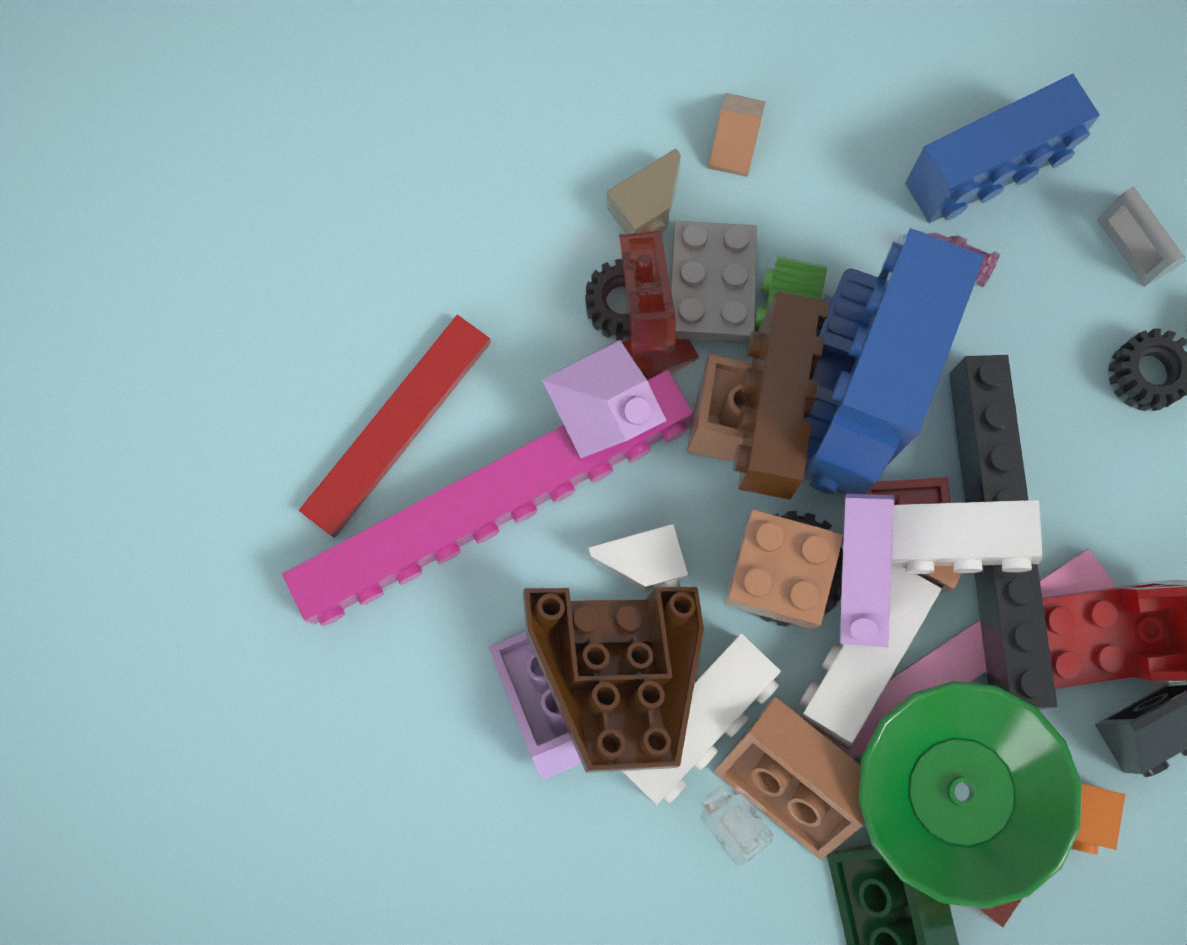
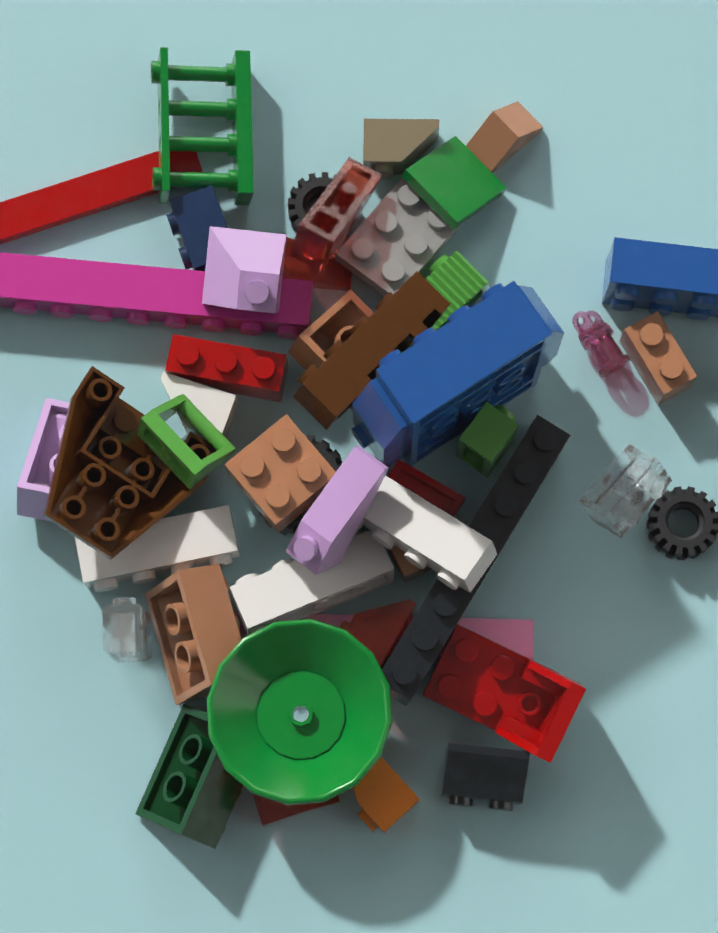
camera: 30 degrees right, 0 degrees up
(480, 259) = (236, 110): none -> green fence
(517, 386) = (191, 218): none -> dark blue brick
(644, 502) = (228, 367): none -> red brick
(657, 616) = (174, 450): none -> bright green tile
(726, 198) = (454, 182): none -> green tile
(946, 413) = (487, 438): none -> bright green brick
(966, 654) = (380, 627): none -> clear red slope
(1024, 236) = (657, 358): none -> nougat brick
(1088, 374) = (625, 491): none -> clear brick

